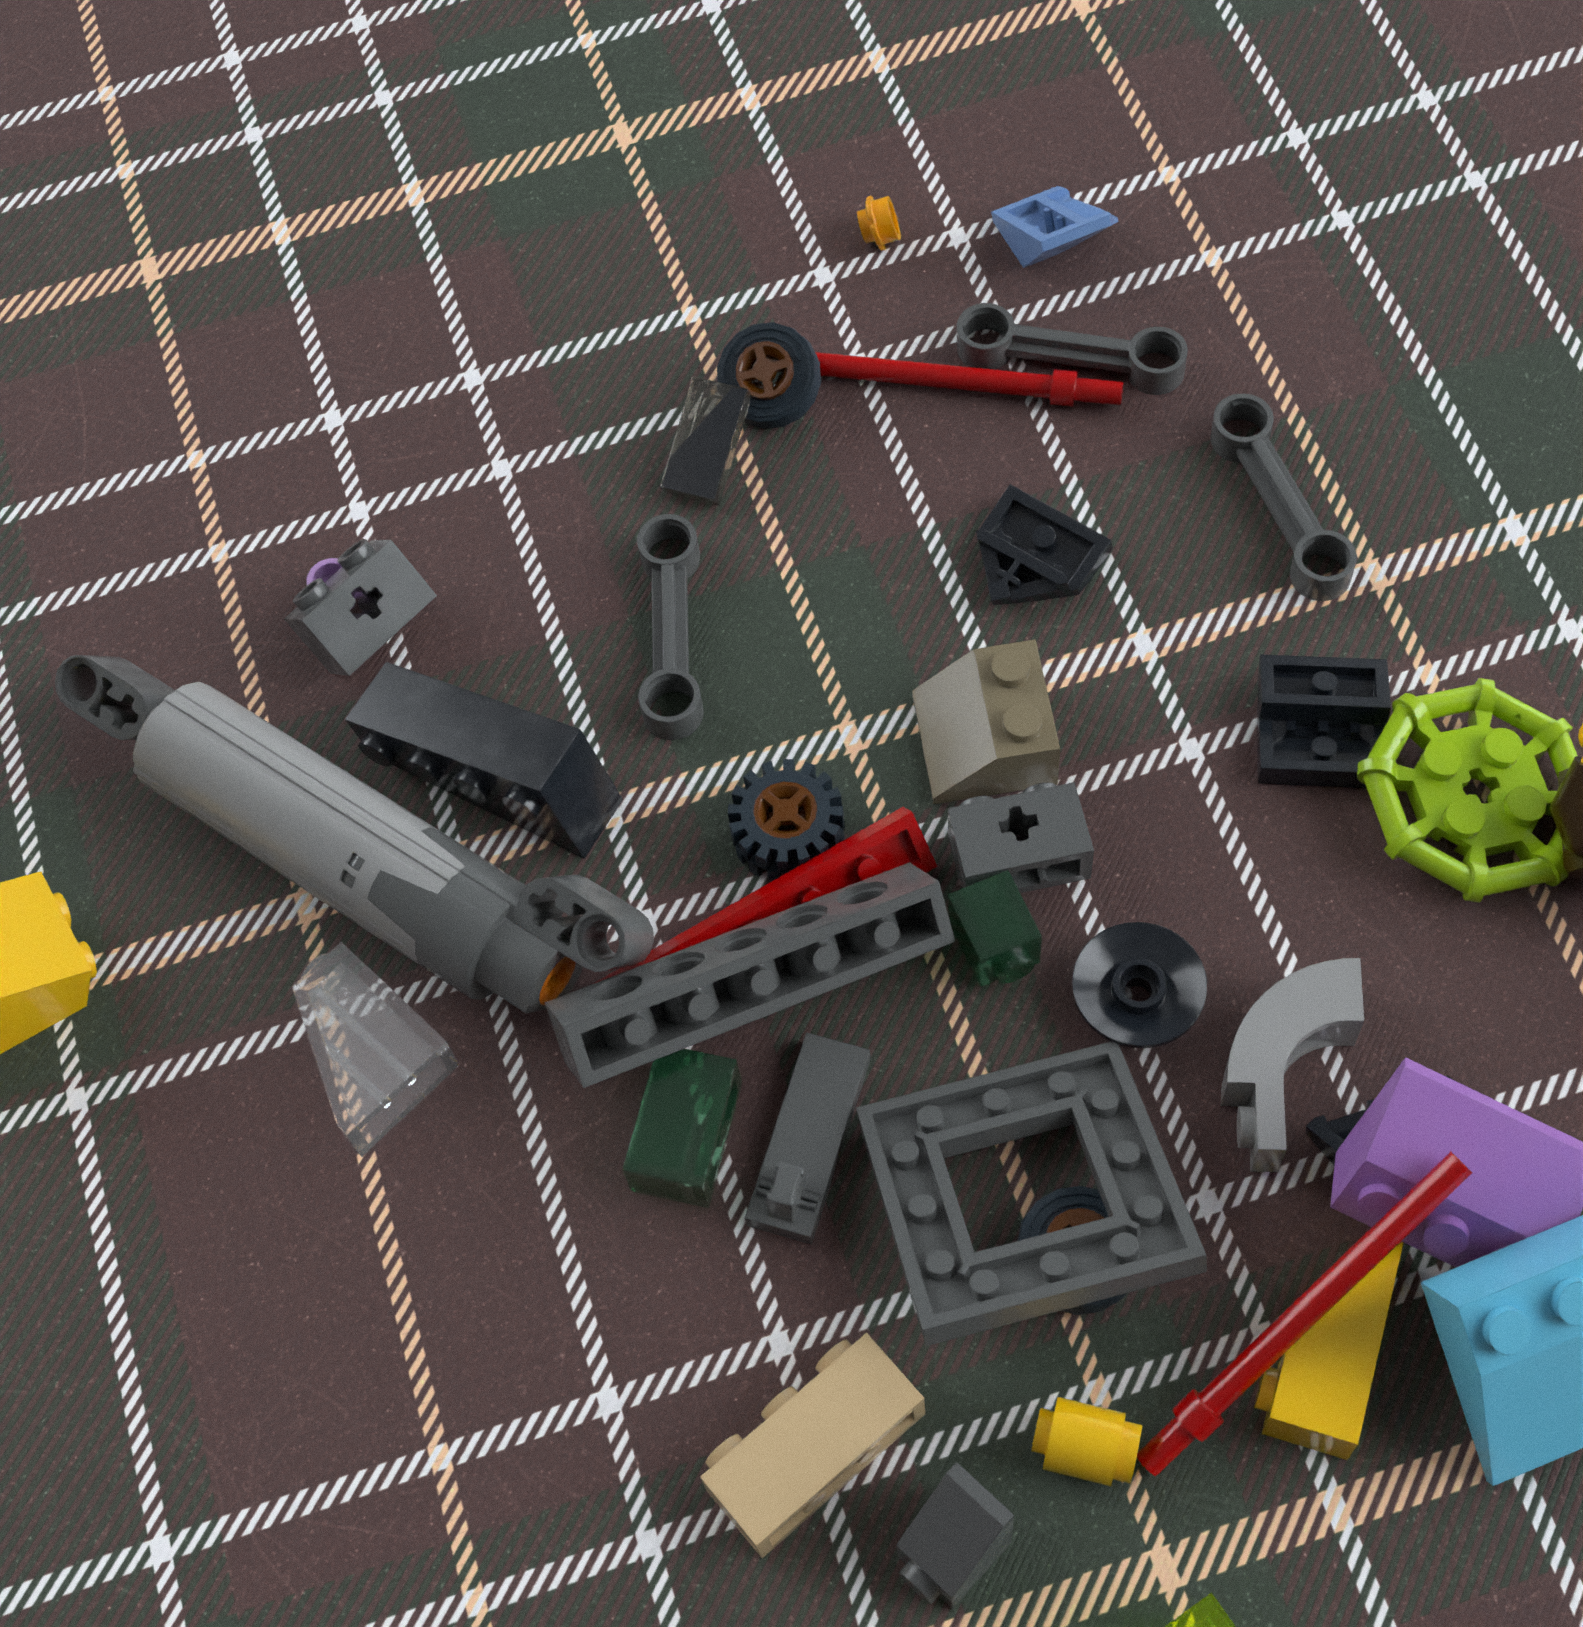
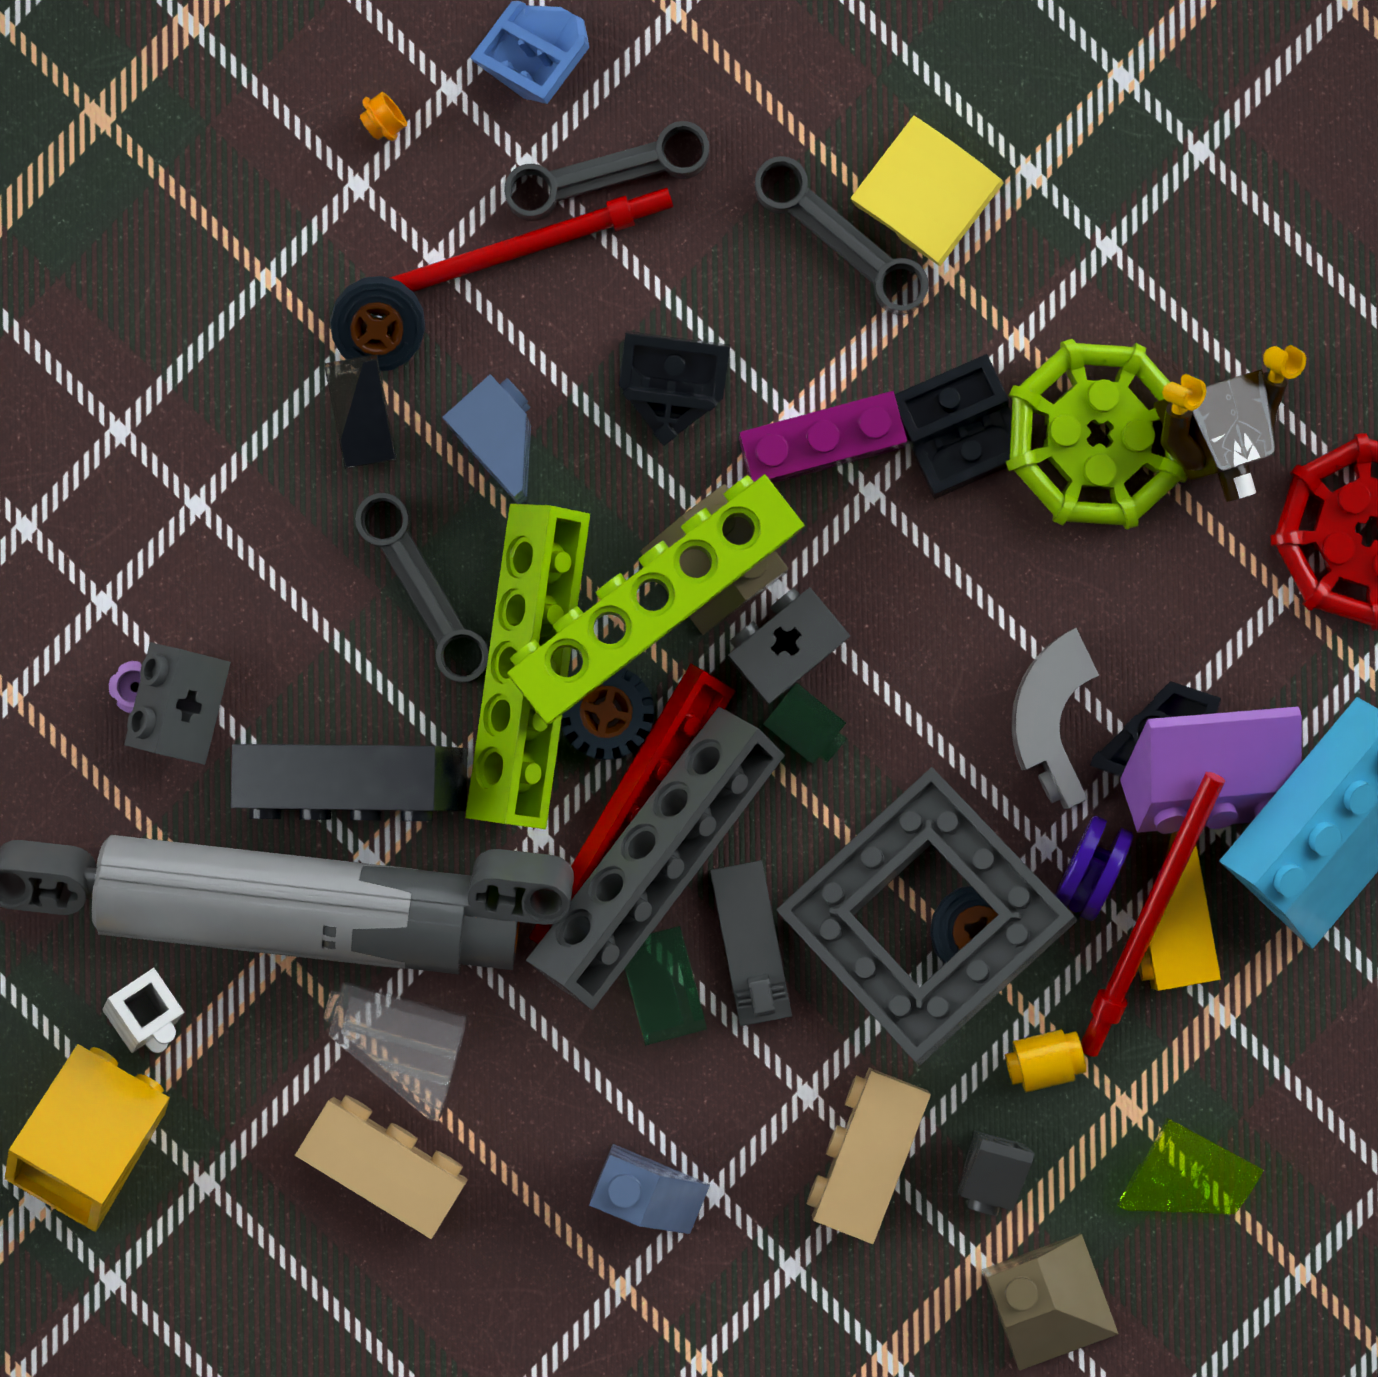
camera: 35 degrees left, 25 degrees up
(121, 862) = (144, 1013): none -> white brick
(263, 1166) = (382, 1165): none -> tan brick
(525, 1334) = (647, 1192): none -> sand blue slope
(727, 733) = (535, 589): none -> lime brick
(826, 499) = (496, 432): none -> sand blue slope
(872, 717) = (772, 525): none -> lime brick
(1142, 957) = (956, 713): black dish -> none
(1163, 660) = (824, 439): none -> magenta brick
(1257, 1234) = (1093, 870): none -> dark purple head
(1395, 491) = (927, 190): none -> light yellow slope

